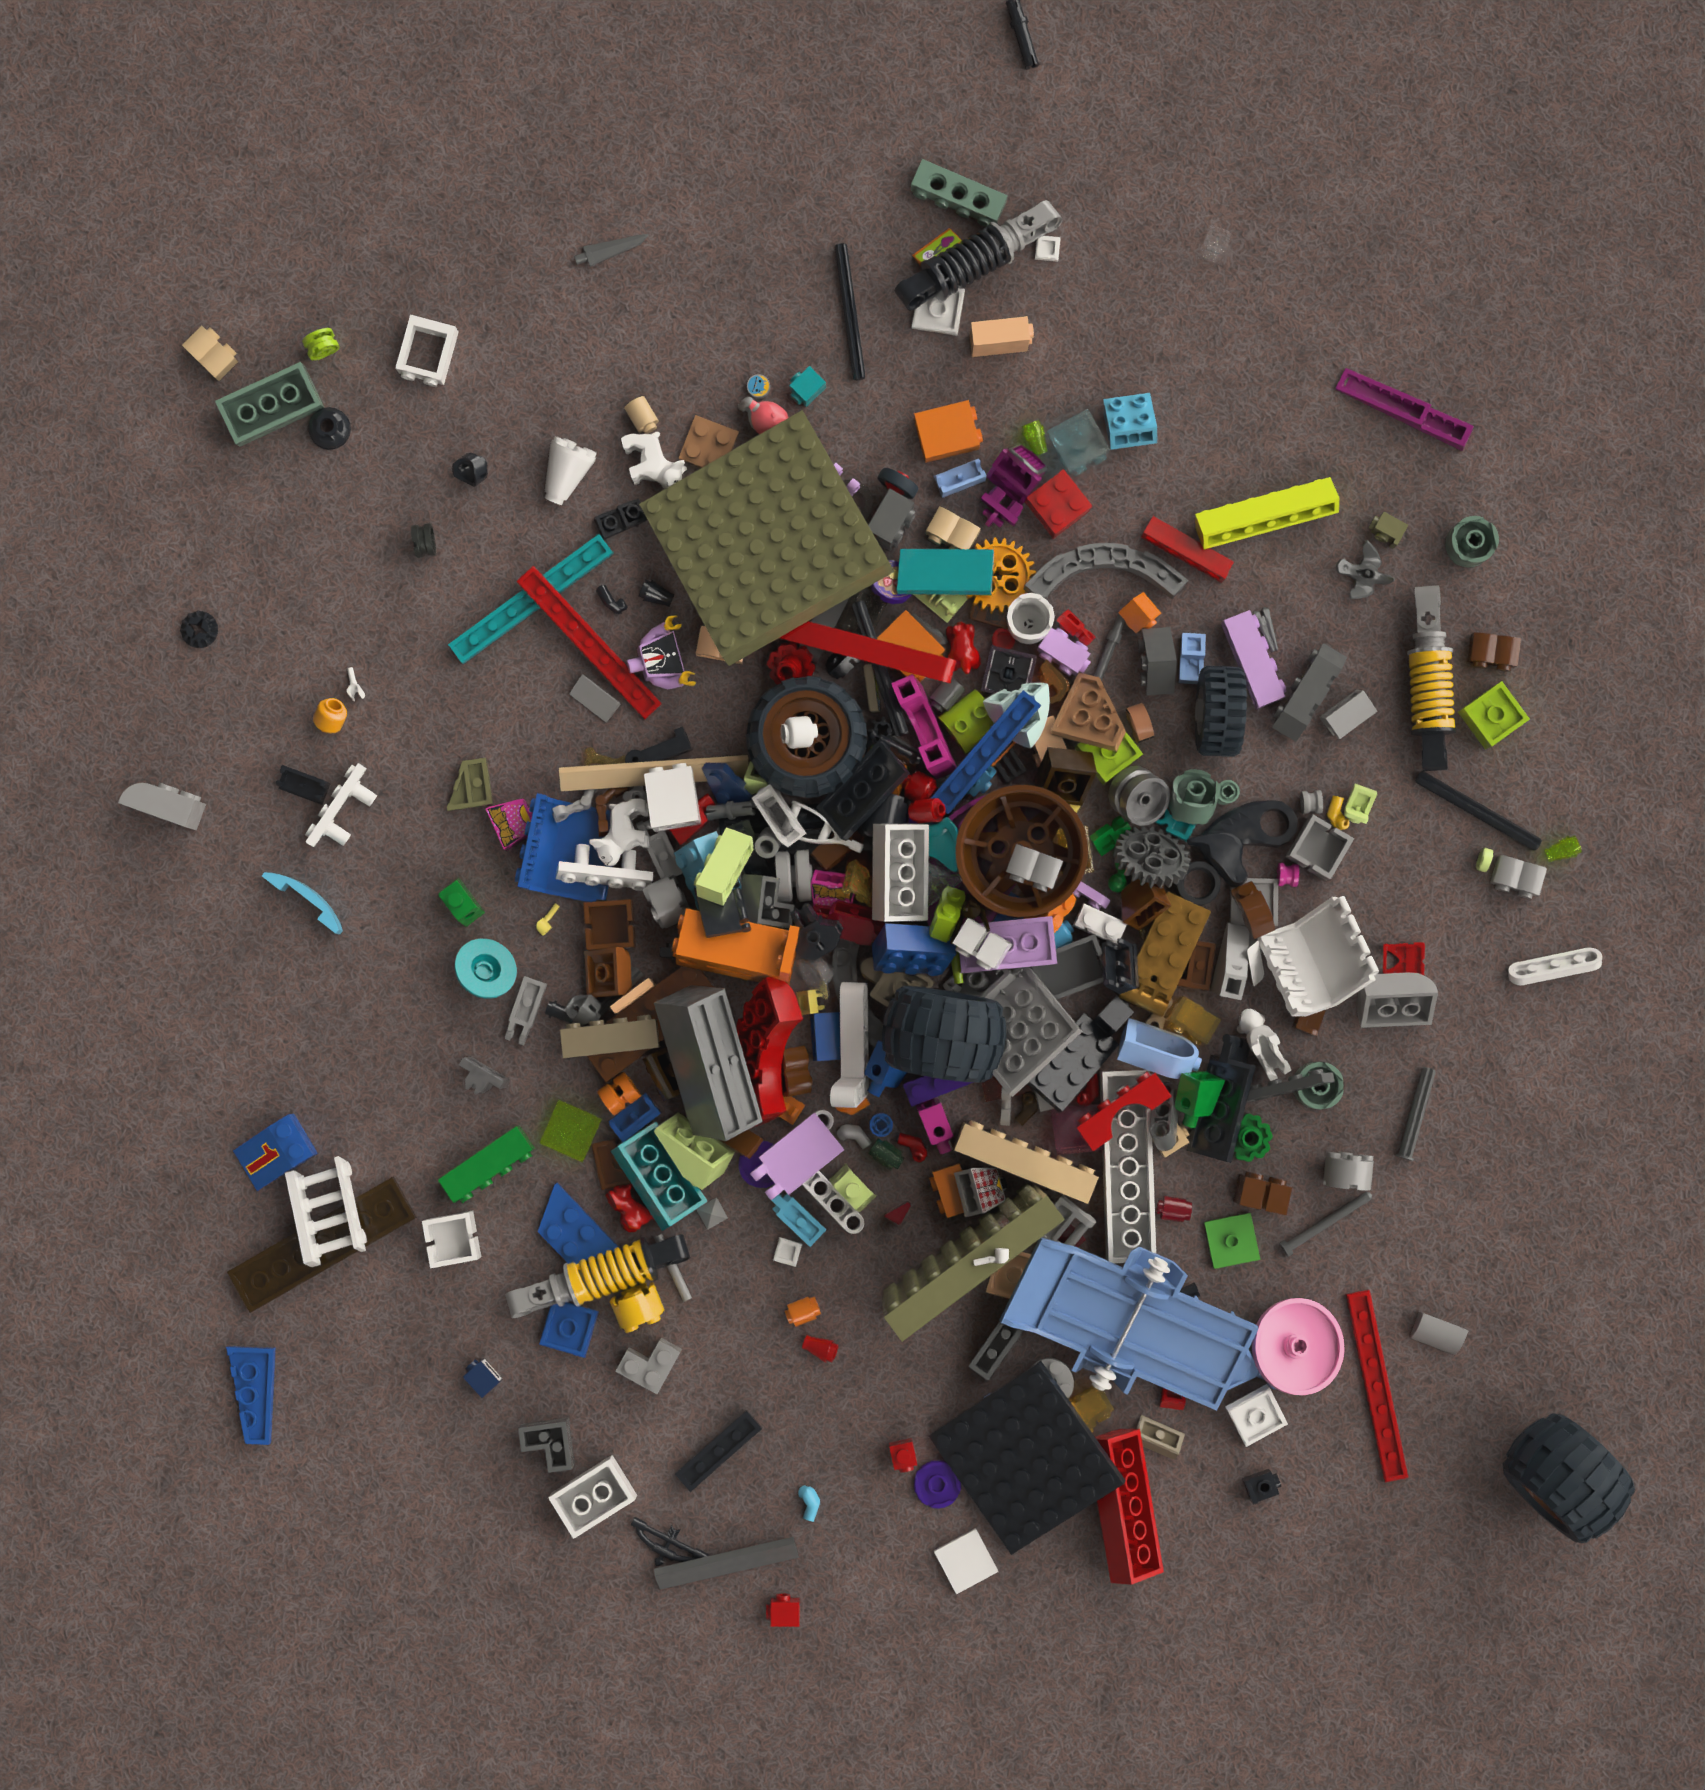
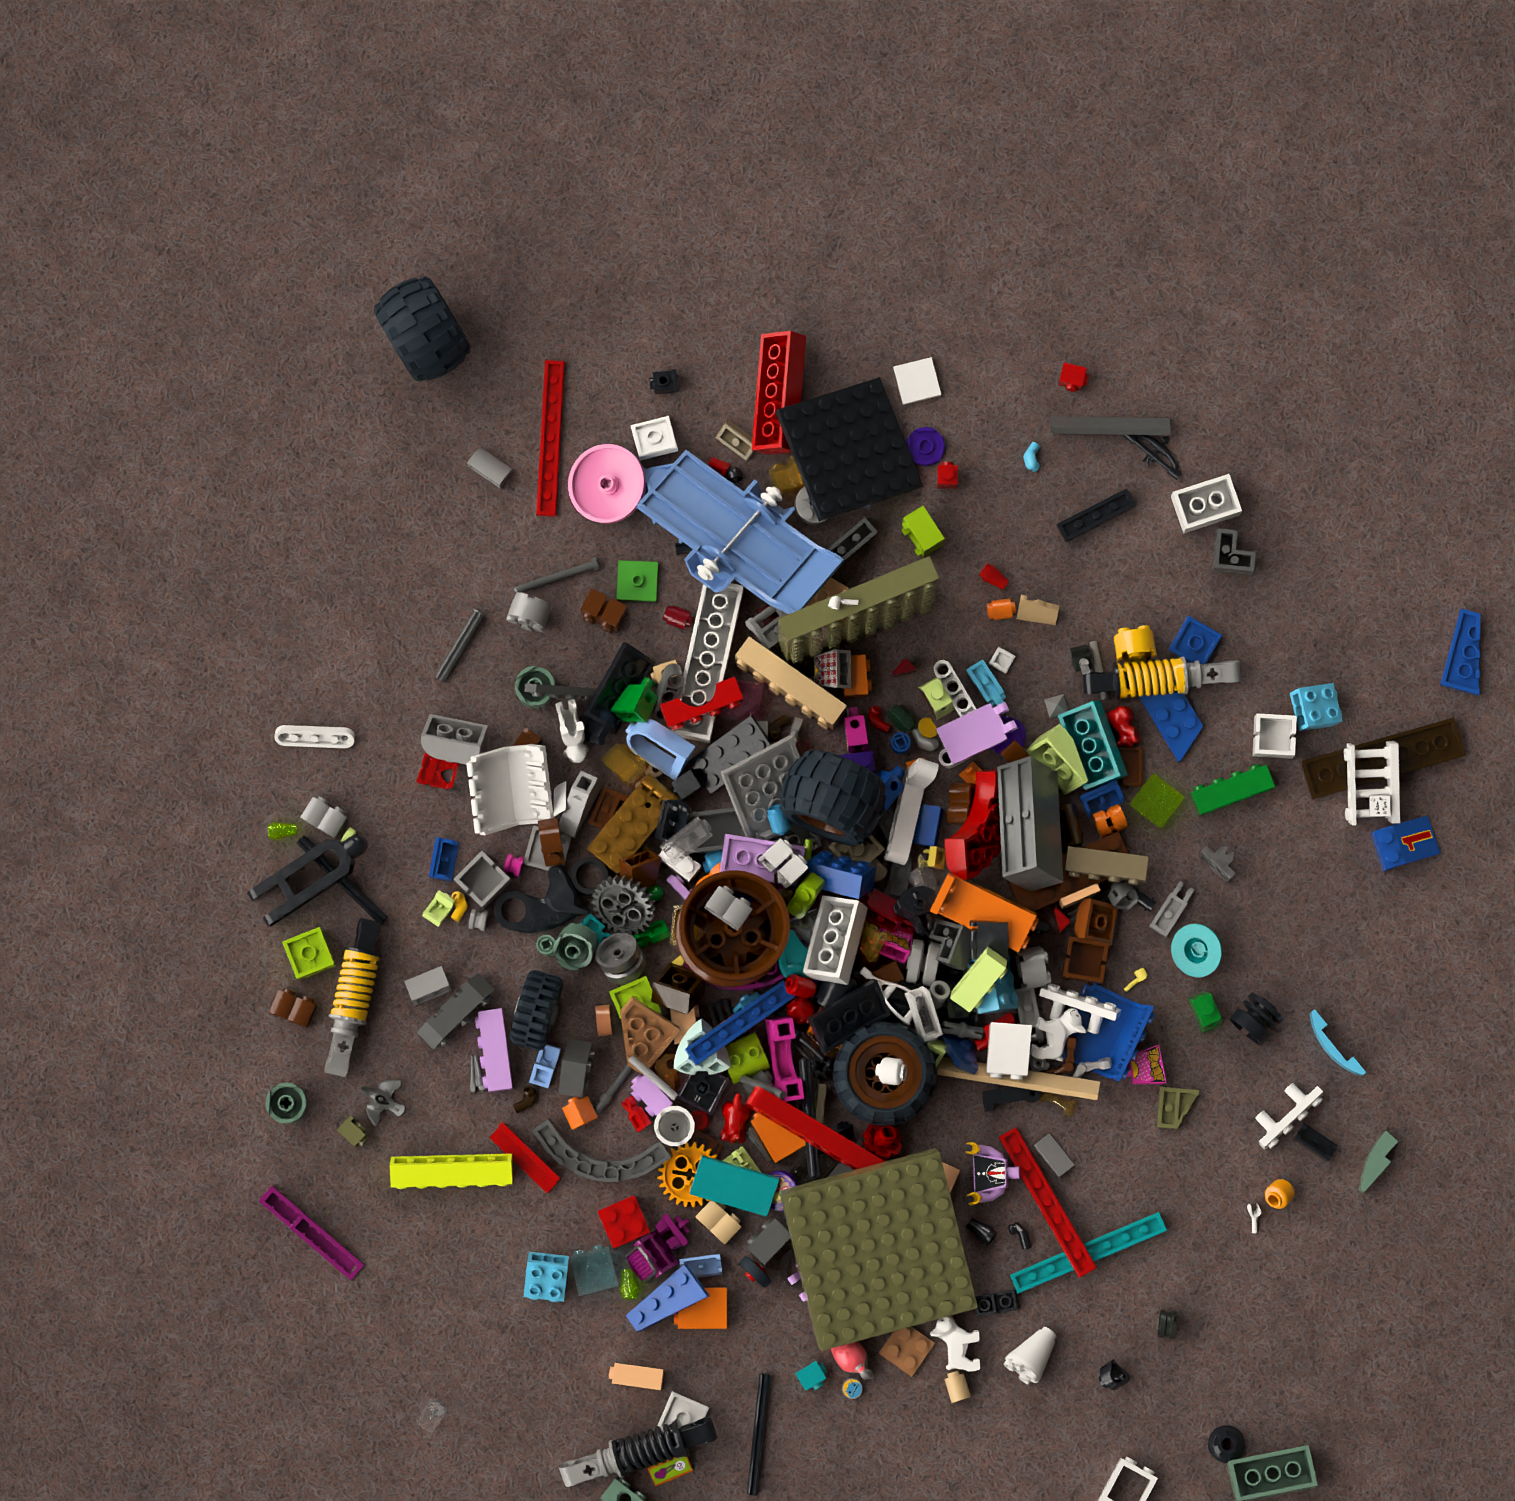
camera: 165 degrees left, 5 degrees down
(165, 803) = (1433, 1152): light grey brick -> none
(201, 639) = (1365, 1297): black gear -> none
(229, 779) = (1376, 1160): none -> sand green slope
(311, 1186) = (1379, 805): none -> white tile
(399, 906) = (1256, 1018): none -> black wheel
(410, 1285) = (1316, 707): none -> medium azure brick
(481, 1377) = (1275, 620): dark blue brick -> none
(647, 964) = (1061, 920): none -> red slope
(649, 1371) = (1136, 591): light grey brick -> none
(695, 1274) = (1081, 659): none -> pearl dark grey piece
(759, 1319) = (1037, 611): none -> tan slope
(854, 1151) = (927, 727): none -> yellow sticker
(916, 1379) = (922, 532): none -> lime container
(941, 687) = (752, 1082): none -> dark grey bar
(986, 430) = (672, 1296): none -> wing
(999, 992) = (777, 820): none -> dark azure brick
(1047, 248) = (576, 1447): white tile -> none
(1067, 669) = (653, 1077): none -> light grey bar
(1090, 1093) = (722, 727): red arm -> none
(1099, 946) = (686, 840): none -> clear brick
(1153, 1395) = (733, 474): none -> black hinge
(1200, 614) = (528, 1099): none -> dark brown arm
(1258, 1145) = (595, 652): green plant -> none
(1369, 861) = (443, 859): none -> blue hinge
(1483, 837) = (347, 853): none -> black piece

